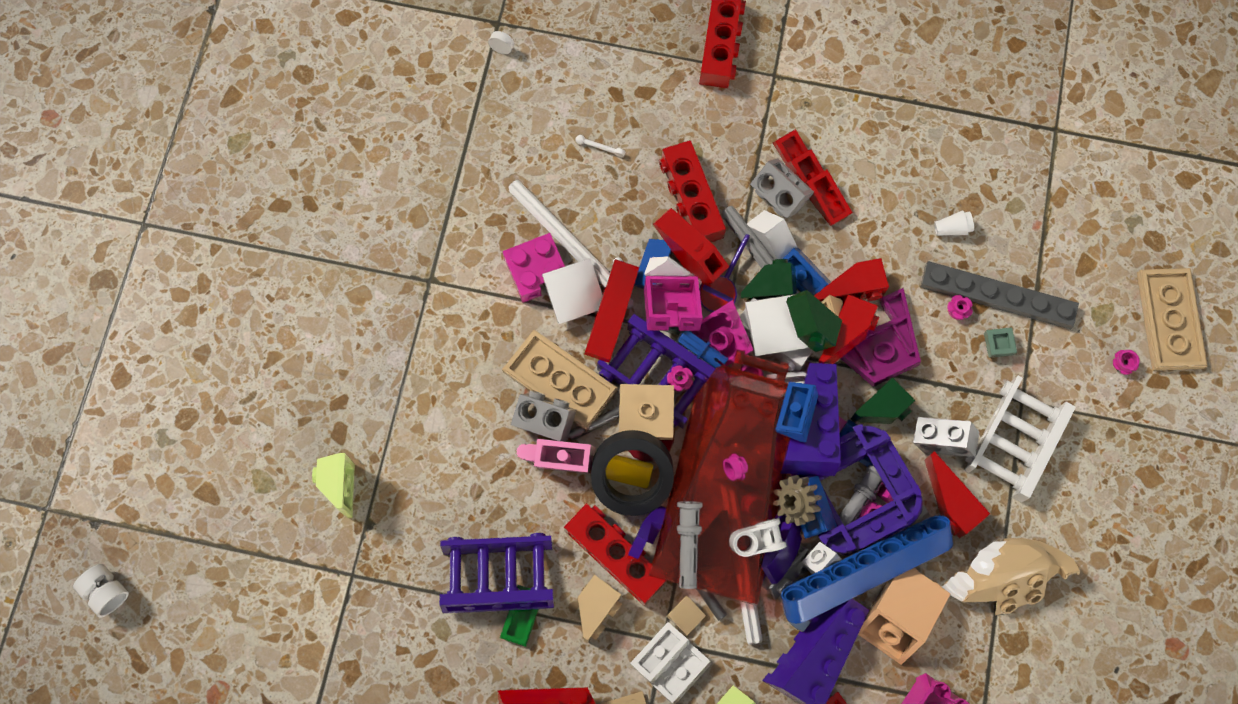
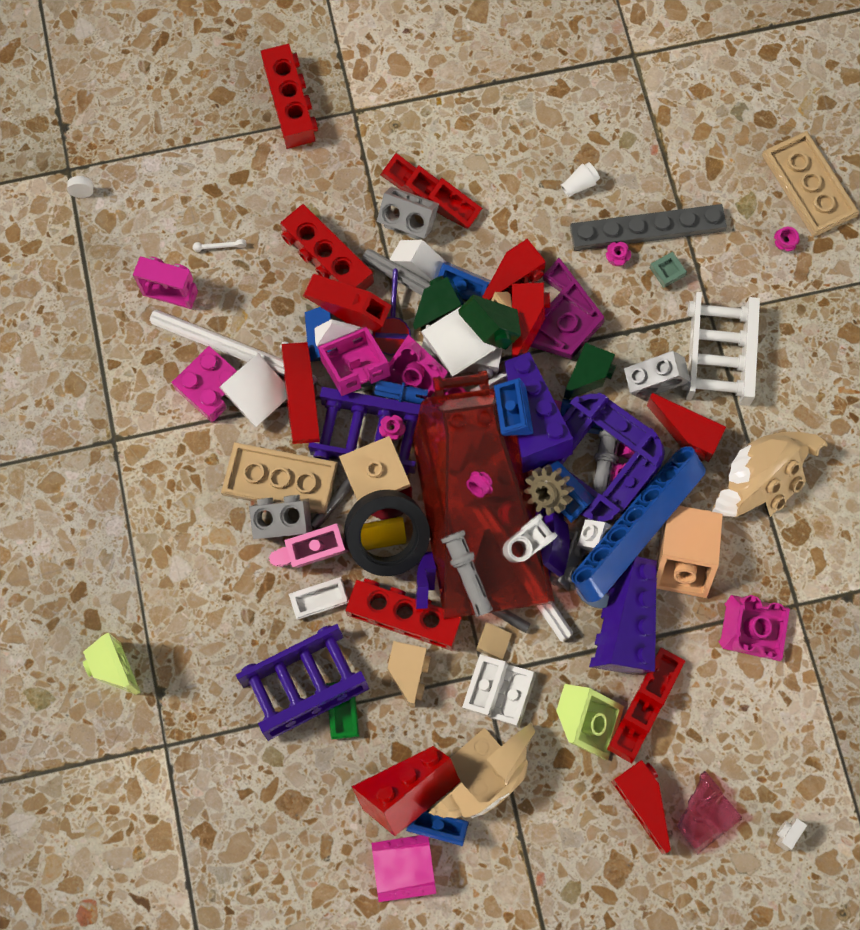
camera: 20 degrees left, 0 degrees up
(537, 159) = (165, 282): none -> dark pink piece
(546, 504) = (319, 598): none -> white tile

